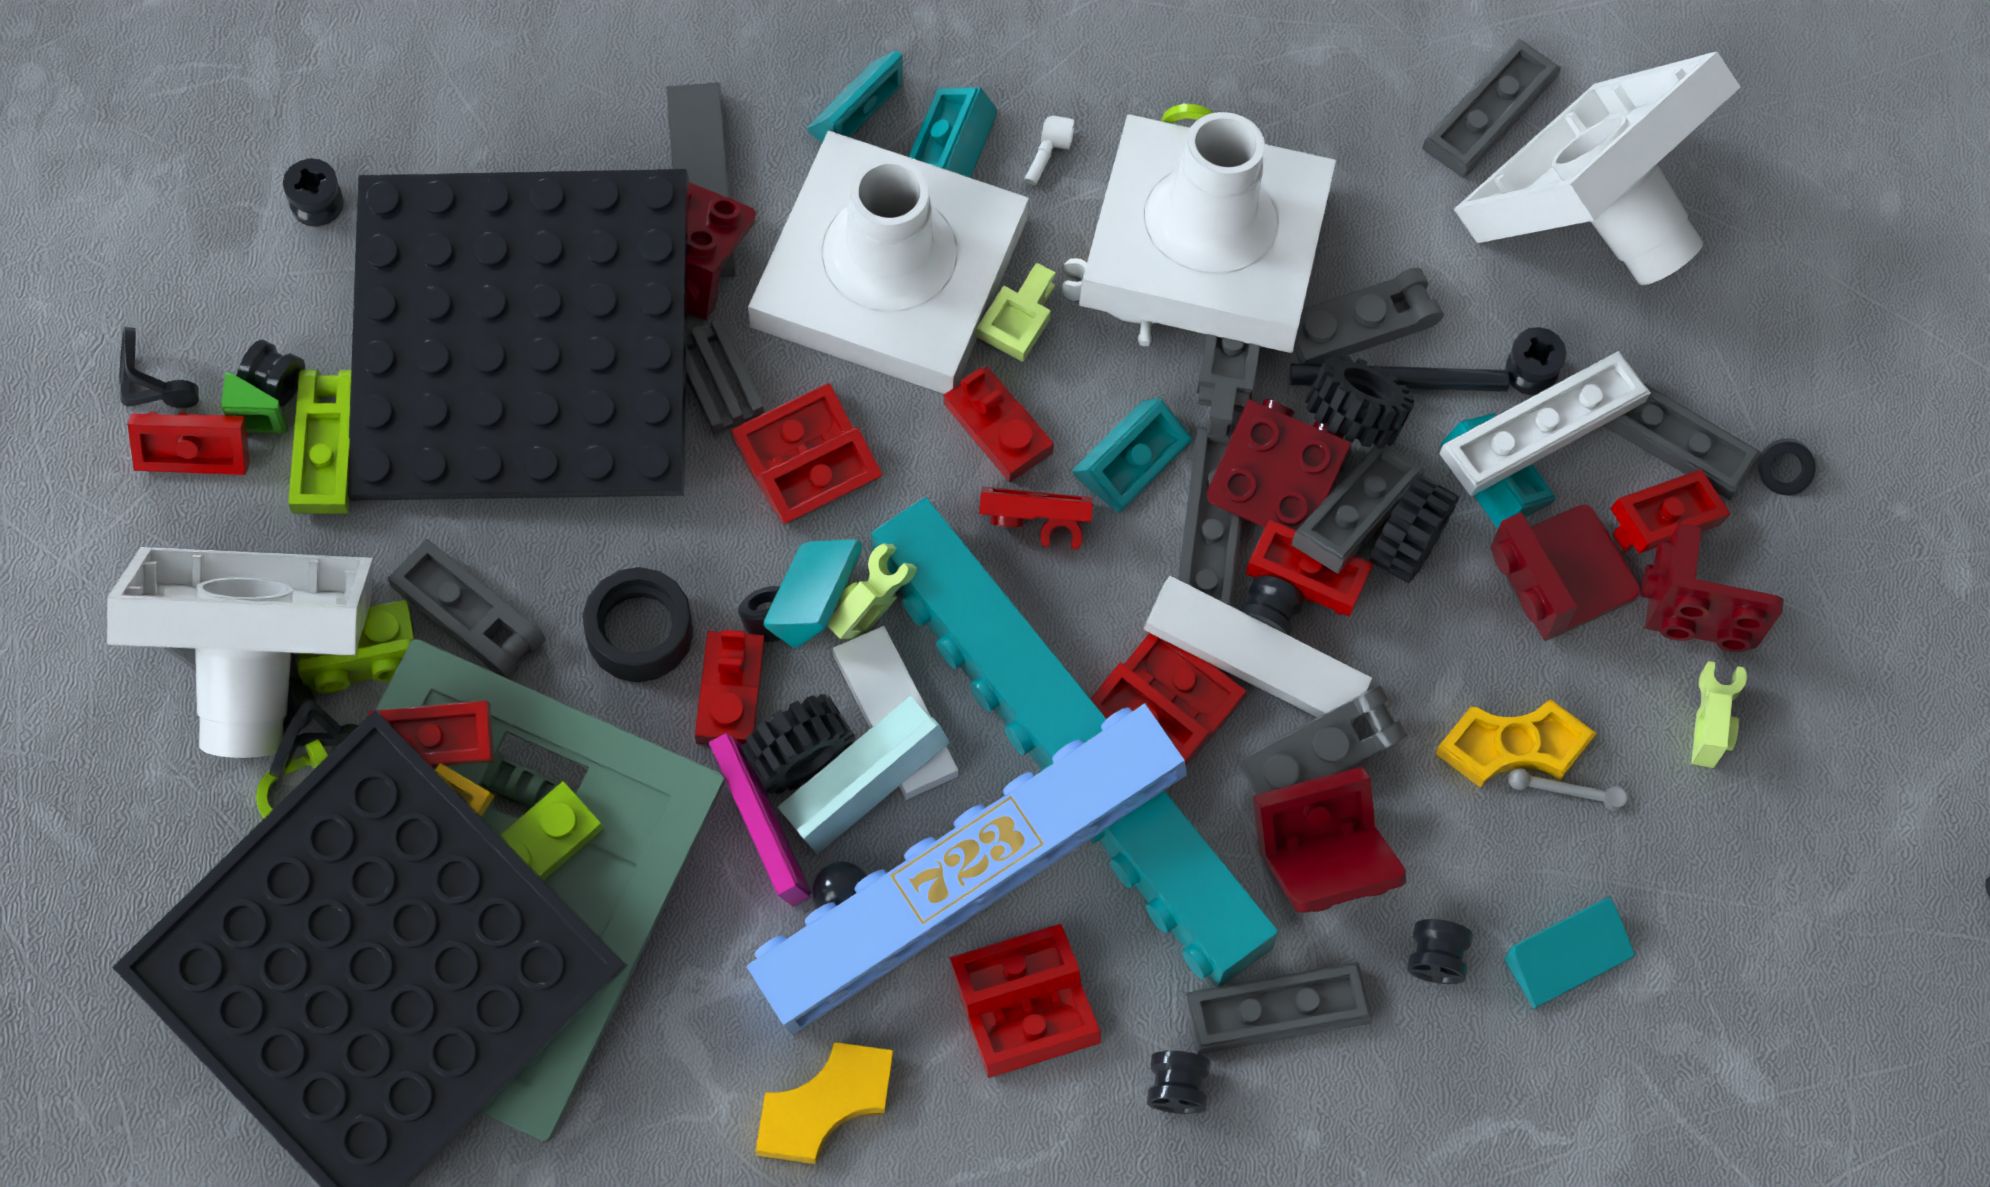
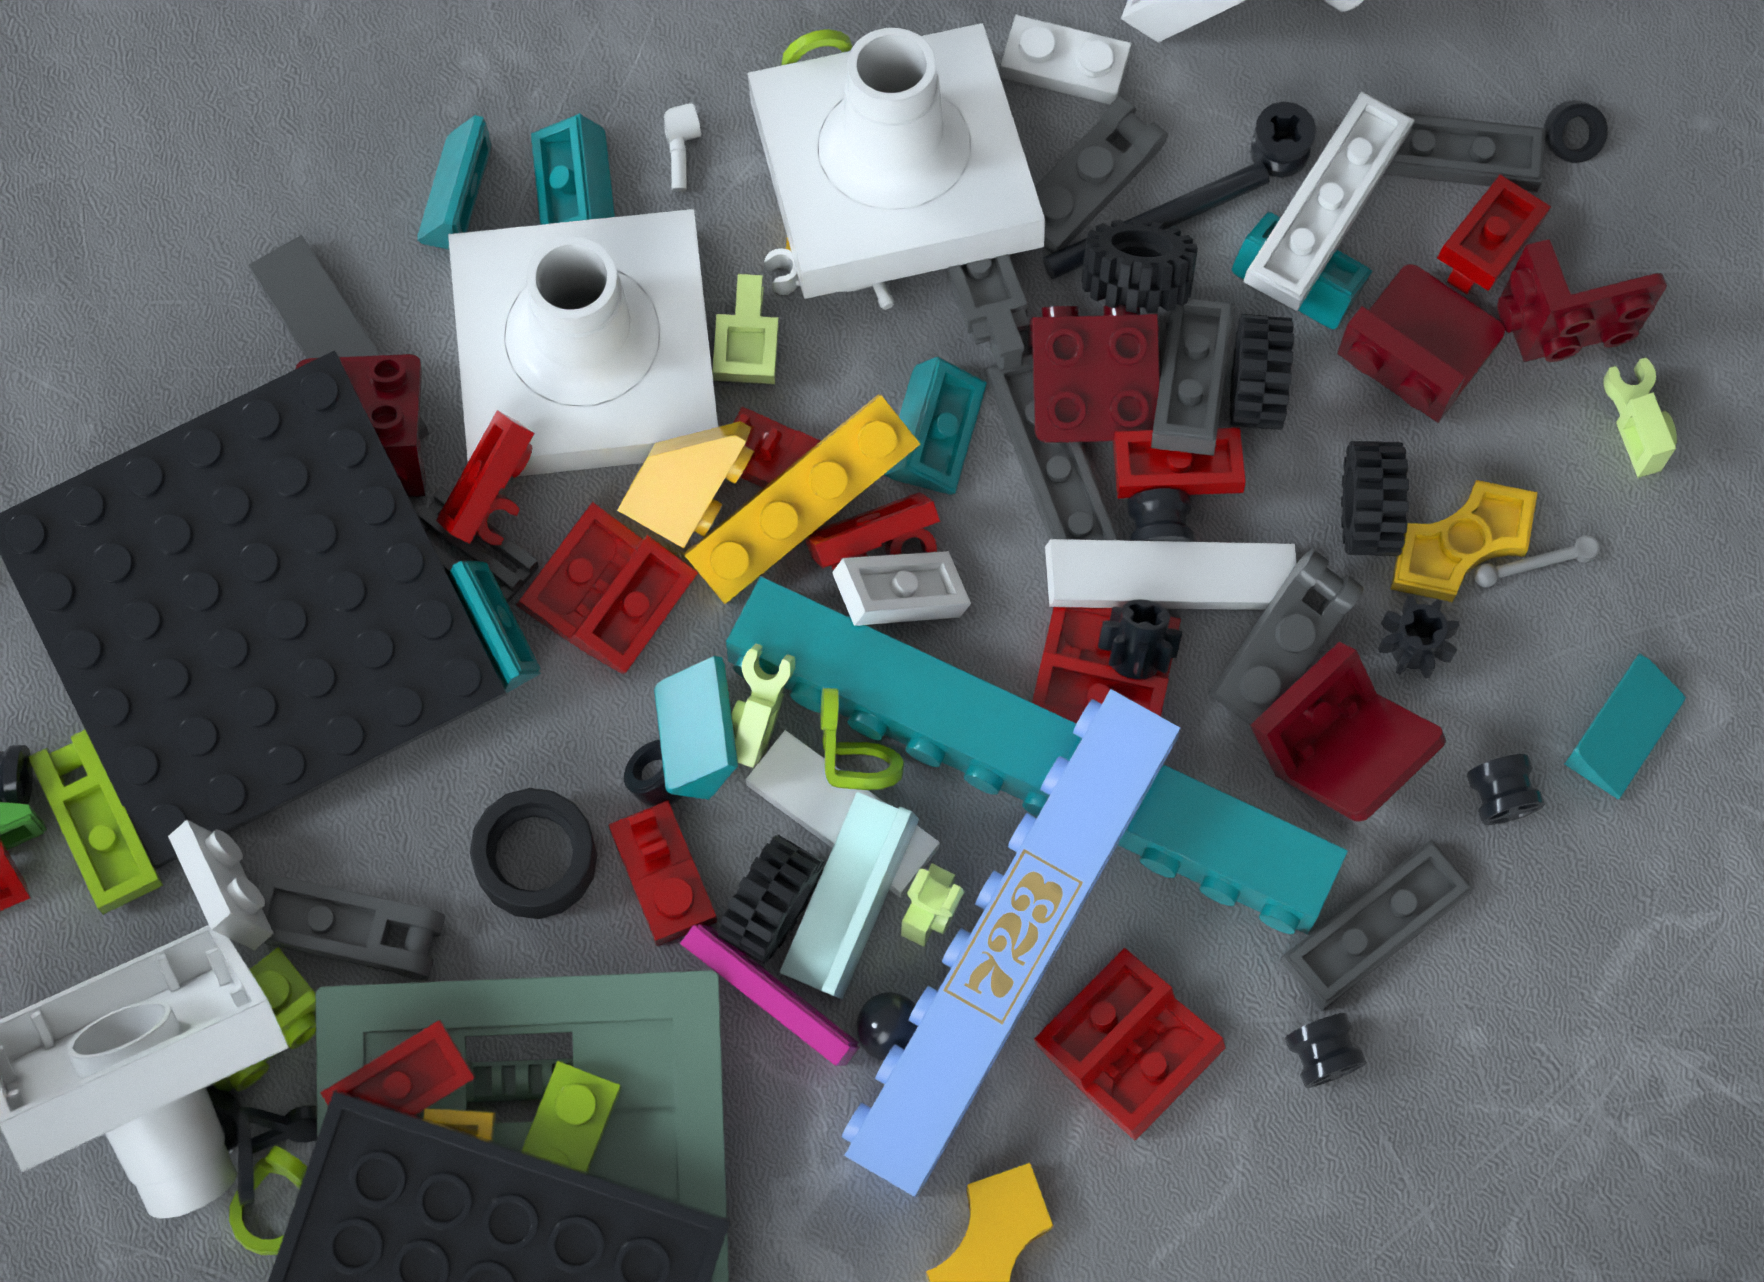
camera: 25 degrees left, 5 degrees up
(387, 529) = (220, 884): none -> white plate
(703, 437) = (494, 623): none -> teal slope
(773, 309) = (498, 456): none -> red plate
(905, 394) = (681, 478): none -> yellow slope
(912, 685) = (854, 779): none -> lime piece
(923, 811) = (932, 904): none -> yellowish green plate
(992, 454) = (801, 498): none -> yellow plate
(1033, 559) = (901, 588): none -> white plate
(1200, 687) = (1139, 639): none -> black gear
(1392, 221) = (1064, 60): none -> white plate
(1440, 782) = (1427, 622): none -> black gear
(1453, 669) = (1374, 498): none -> black tyre

